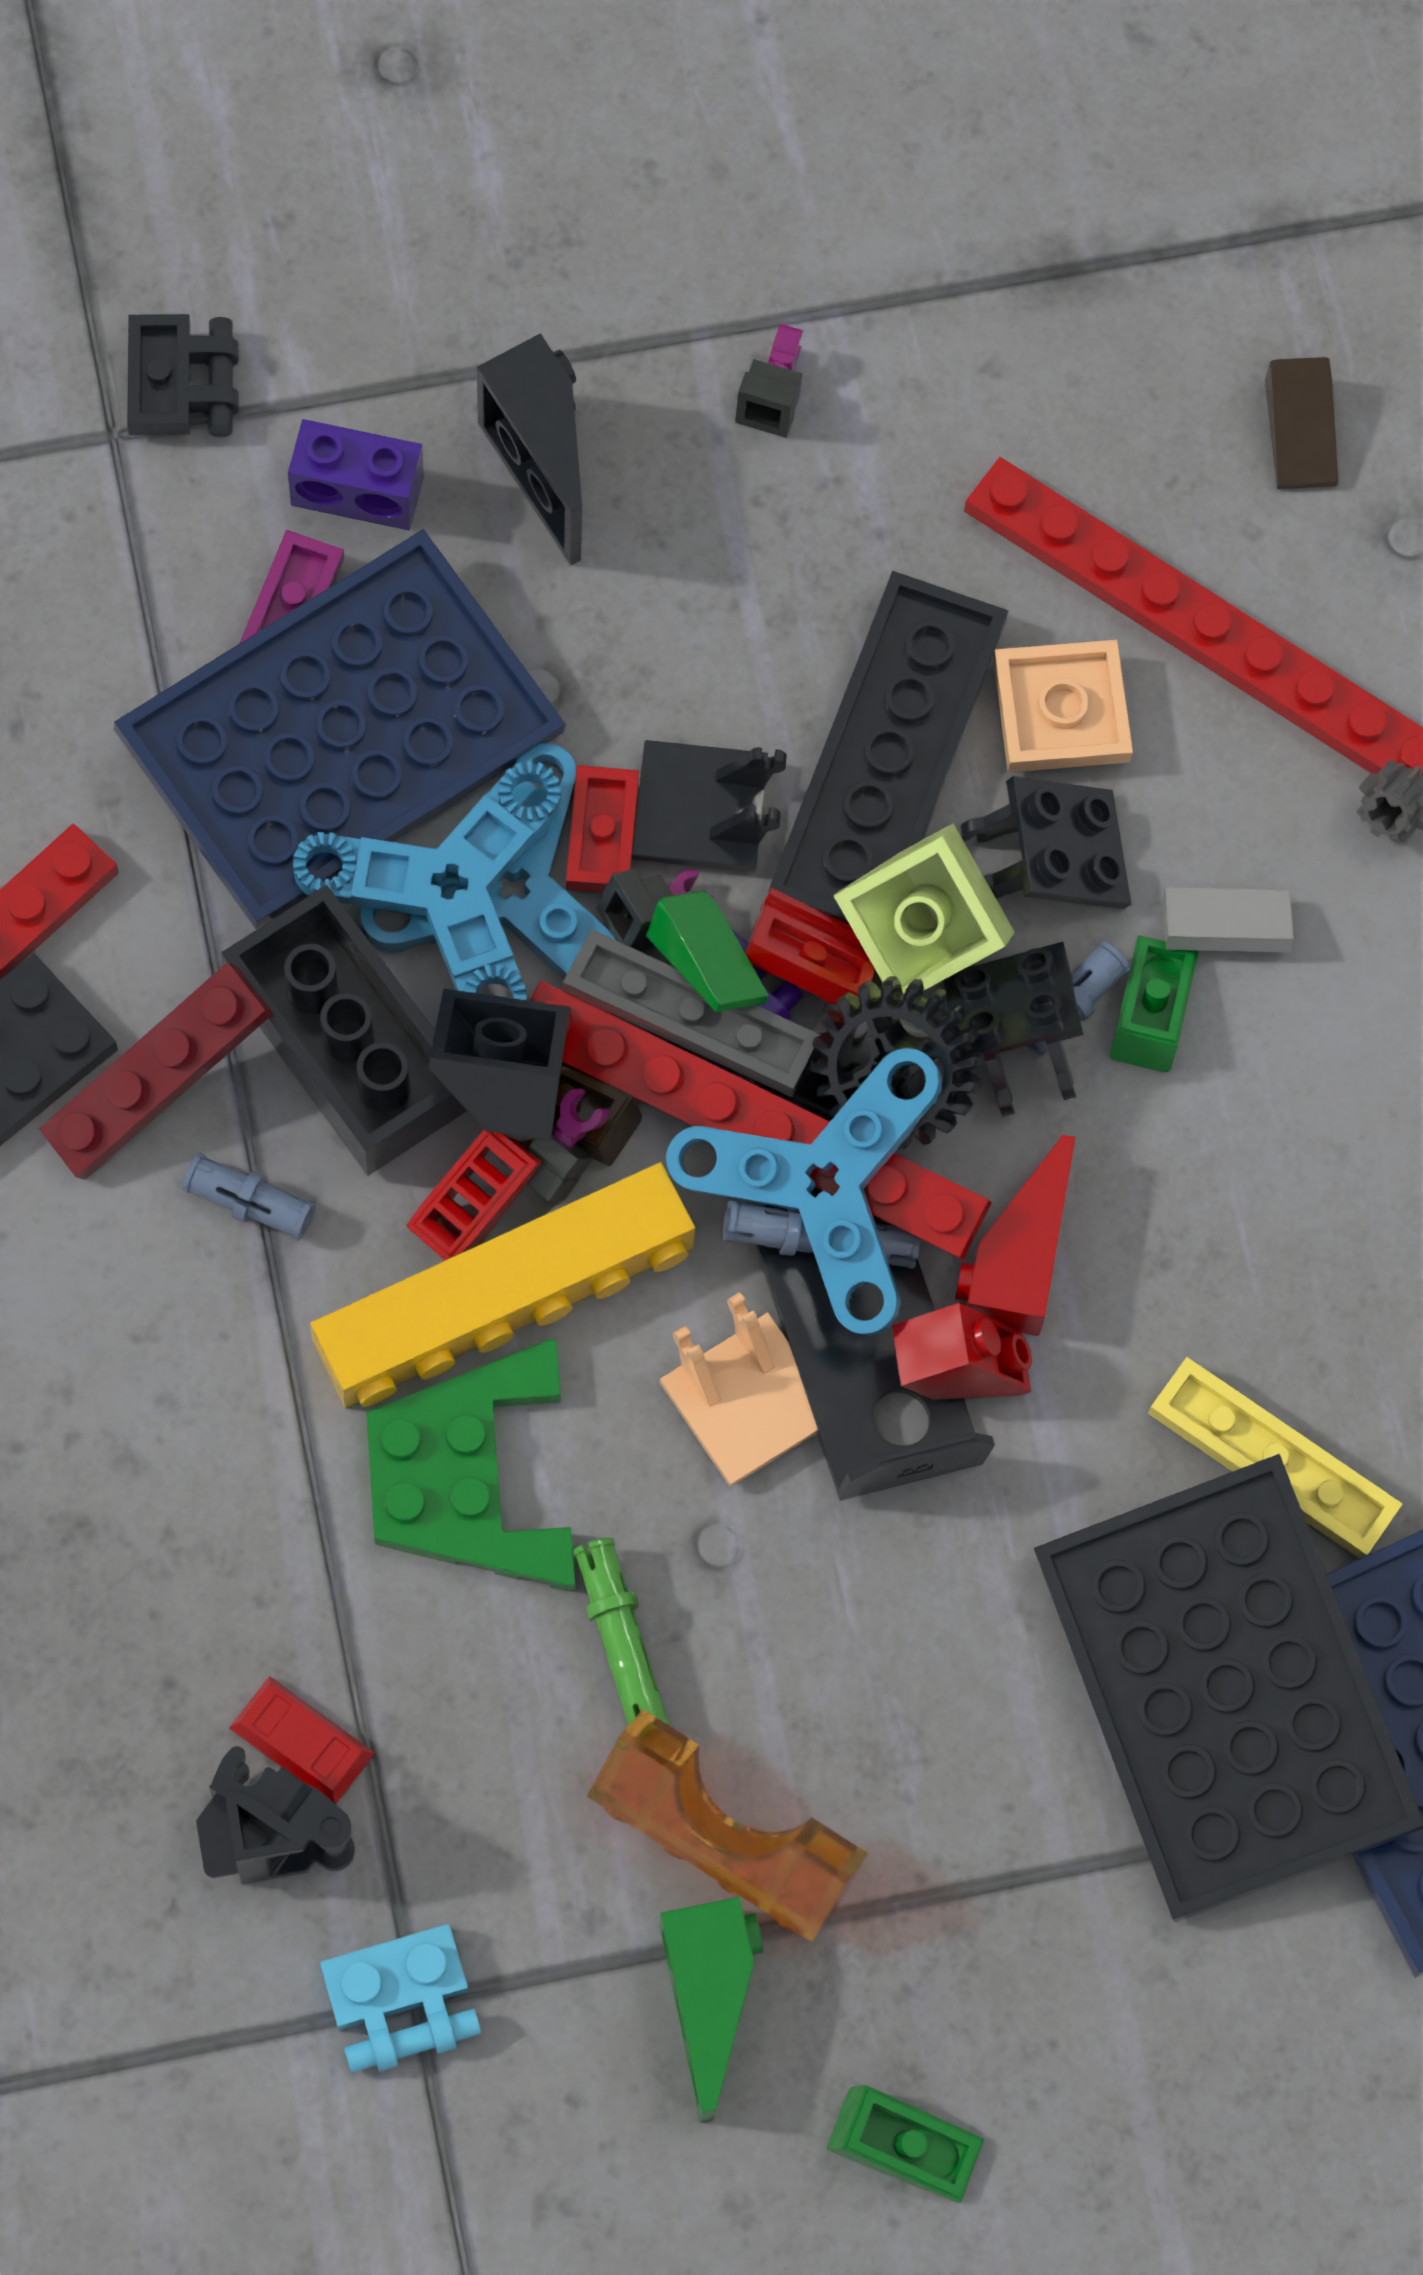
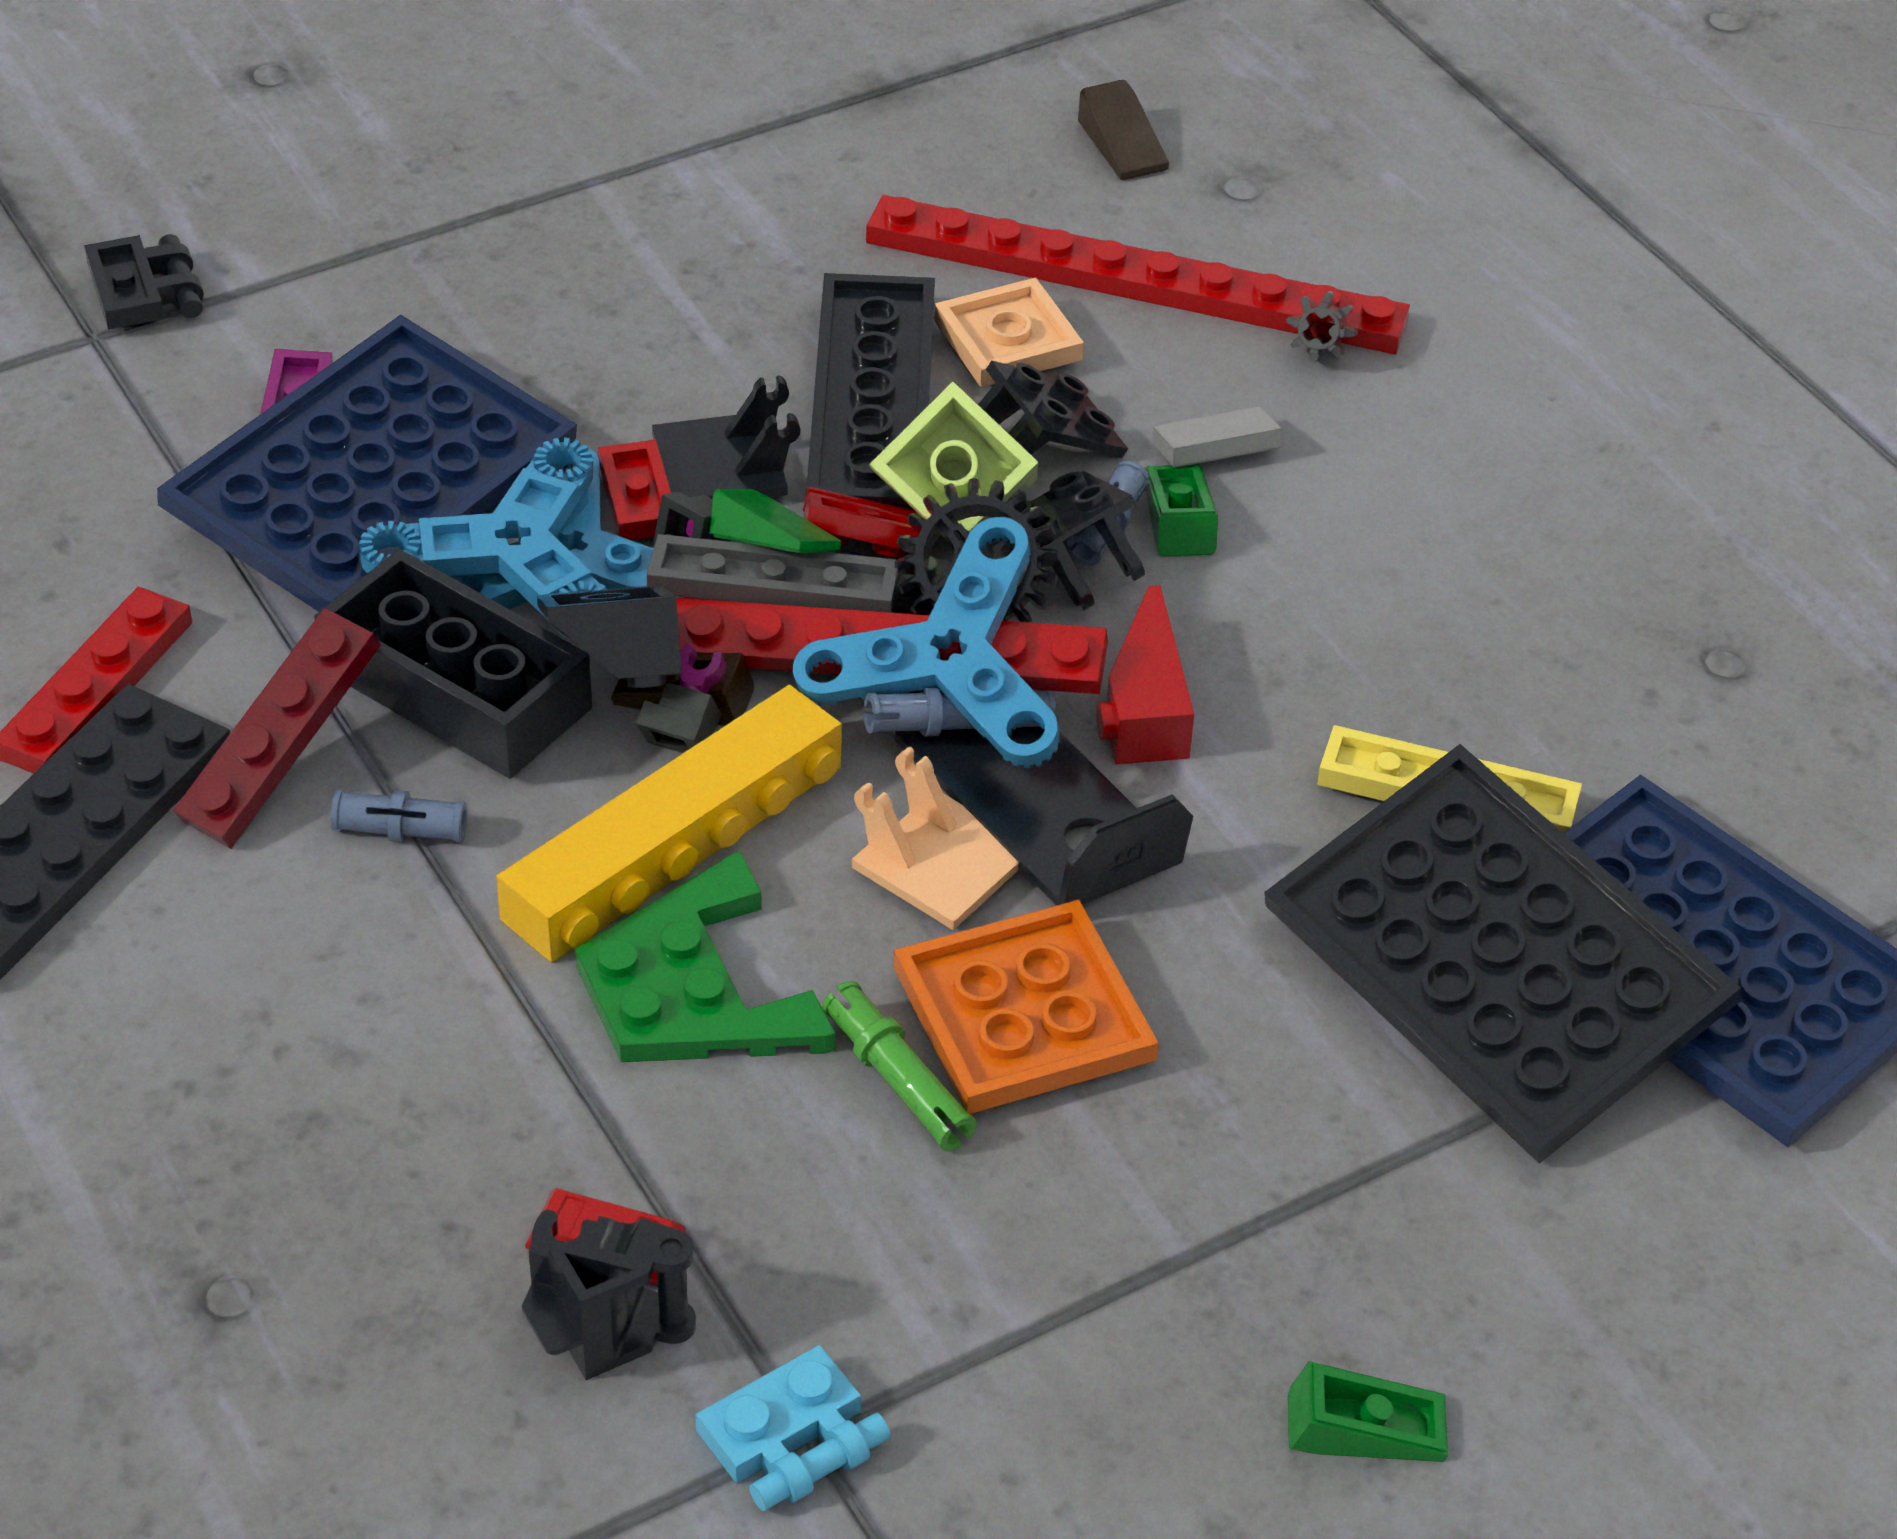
camera: 15 degrees left, 25 degrees down
(356, 474) = (324, 302): dark purple brick -> none
(436, 1232) = (591, 764): red slope -> none
(531, 423) = (480, 241): black slope -> none
(659, 1790) = (981, 1161): clear orange arch -> none
(709, 1970) = (1105, 1316): green slope -> none
(761, 1604) = (1024, 1006): none -> orange plate
(772, 388) = (670, 191): pearl dark grey piece -> none
(961, 1355) = (1125, 760): red slope -> none

